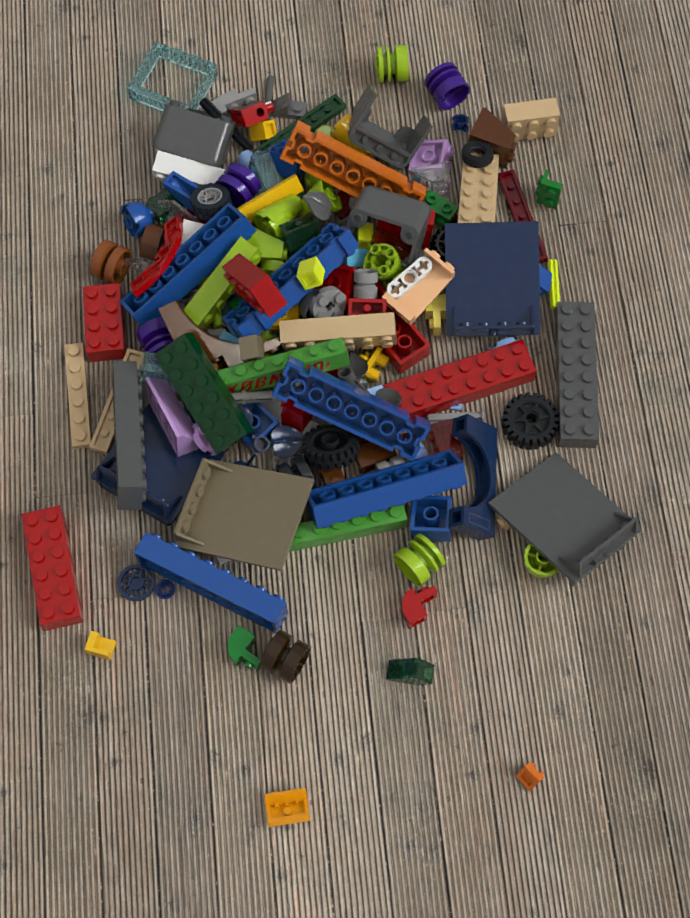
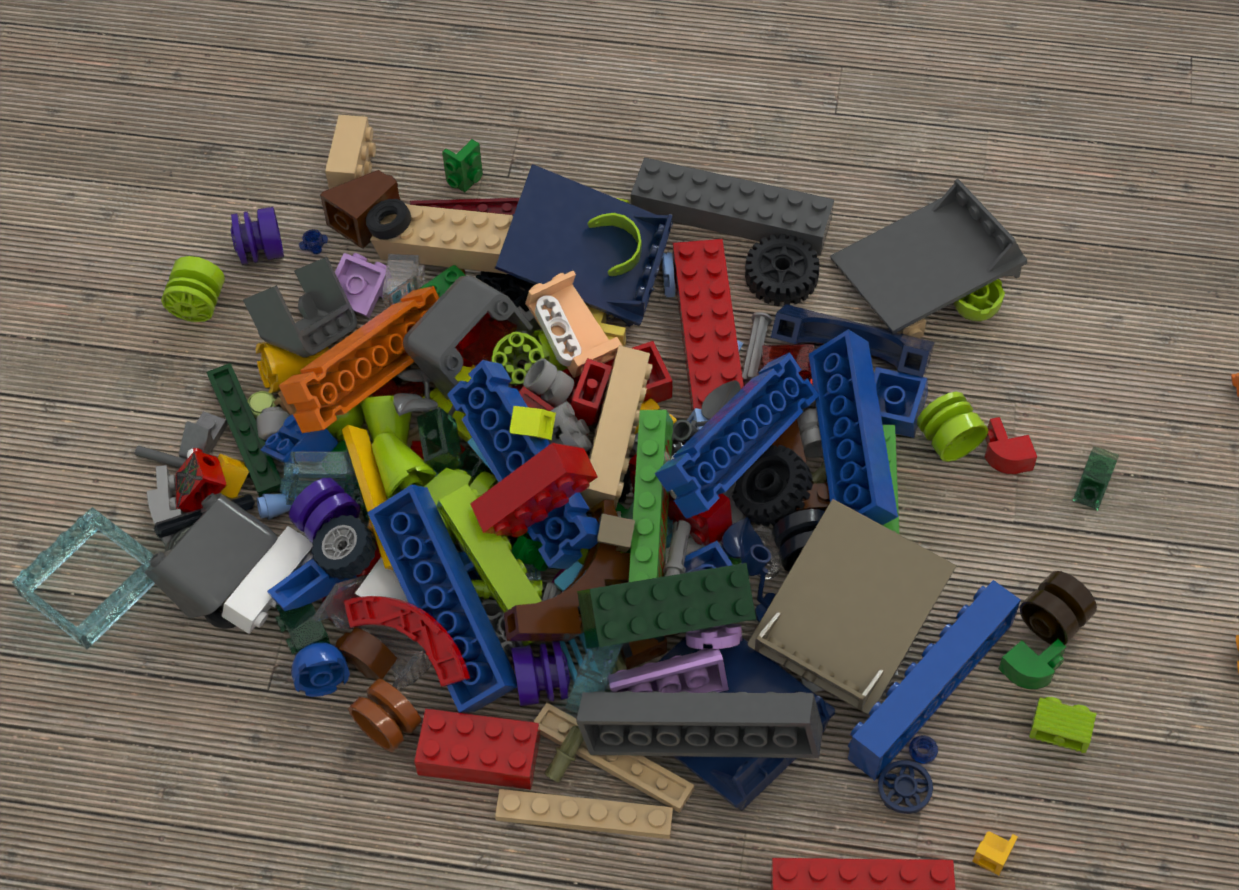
camera: 75 degrees left, 10 degrees down
(104, 371) = (565, 755): none -> olive axle
(201, 676) = (1063, 724): none -> lime brick
(505, 311) = (625, 223): none -> lime piece

